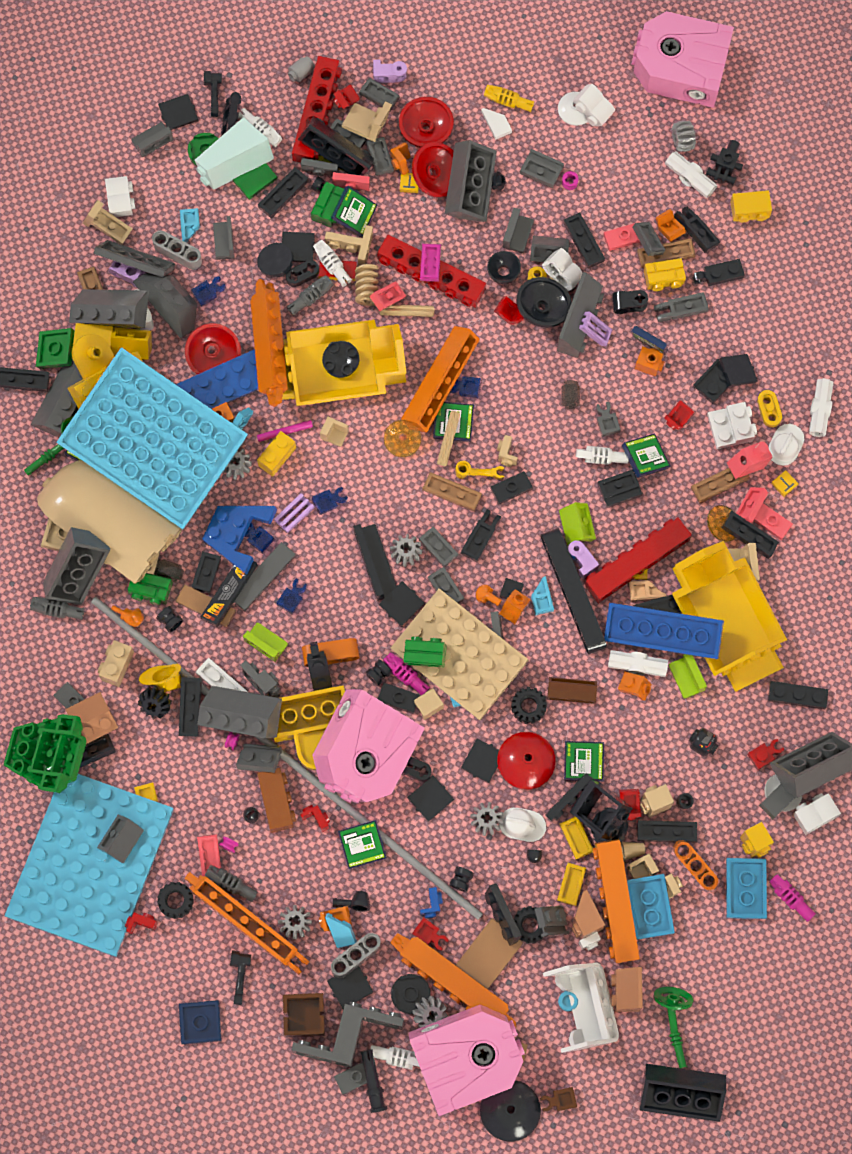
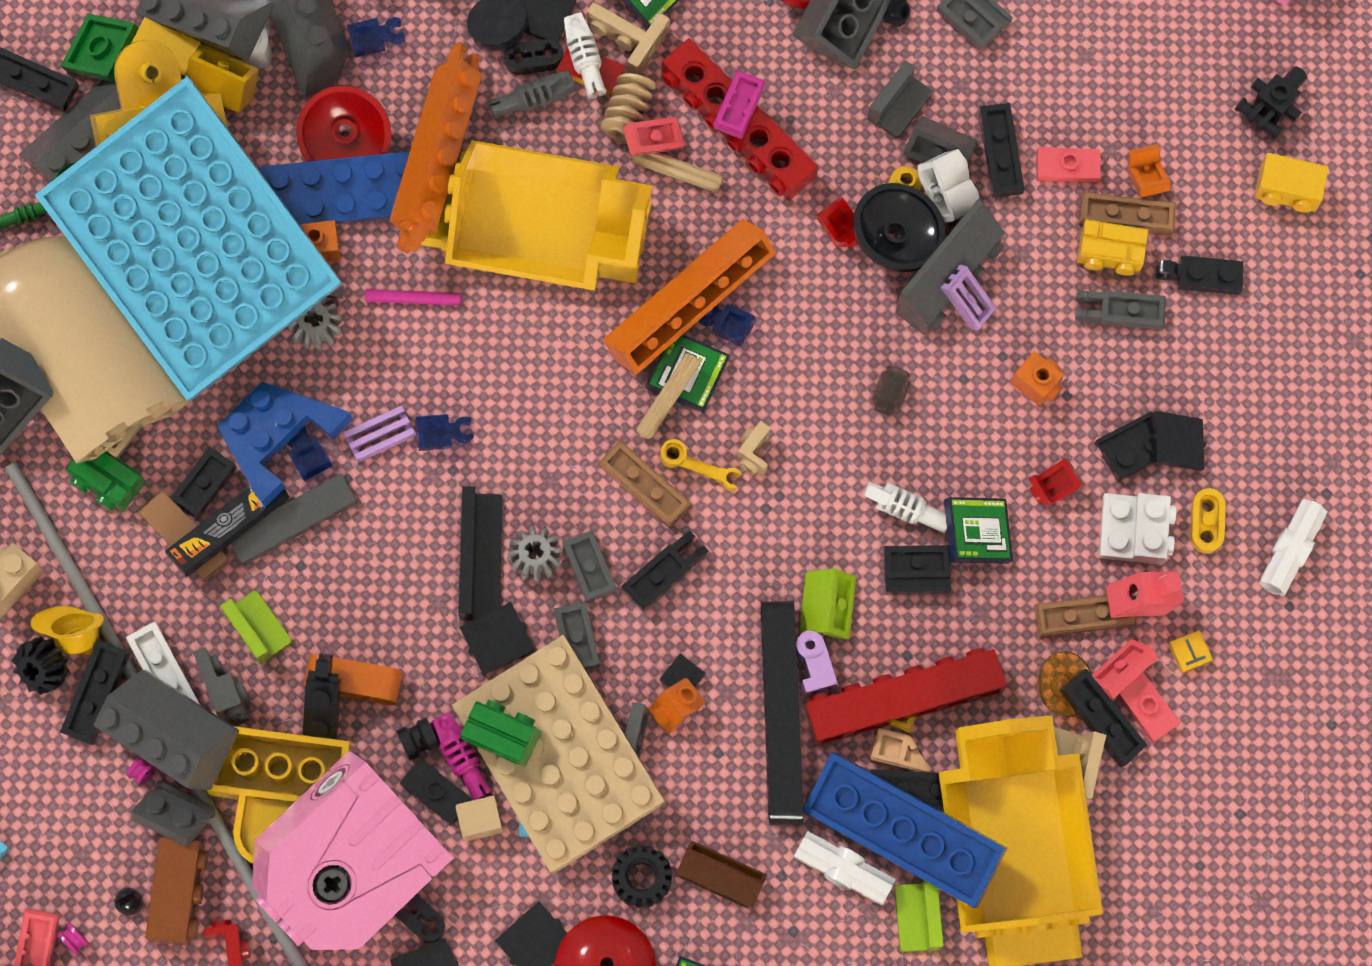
camera: 15 degrees right, 0 degrees up
(131, 617) = (58, 515): orange piece -> none
(169, 570) = (145, 459): clear smoke brick -> none
(169, 619) = (117, 539): black wheel -> none
(242, 418) = (350, 256): medium azure tile -> none
(276, 453) = (385, 329): yellow brick -> none
(291, 598) = (322, 571): clear blue plate -> none
(334, 431) = (490, 325): tan panel -> none
(340, 359) = (543, 211): black dish -> none
(399, 447) = (586, 384): clear yellow dish -> none
(484, 594) = (636, 669): orange plate -> none
(507, 260) = (859, 138): black piece -> none
(511, 487) = (742, 509): black plate -> none
(542, 599) = (726, 707): medium azure tile -> none
(572, 175) = (1005, 54): dark pink bush -> none
(607, 422) = (935, 455): dark grey plate -> none
(627, 301) = (1036, 272): black piece -> none
(635, 685) = (827, 903): orange bracket -> none
(648, 238) = (1106, 181): dark grey plate -> none
(649, 340) = (1049, 344): dark blue tile -> none
(683, 136) = (1220, 35): light grey gear -> none
(691, 174) = (1211, 100): white piece -> none
(697, 229) = (1190, 192): black hinge -> none
(786, 444) = (1215, 588): white piece -> none

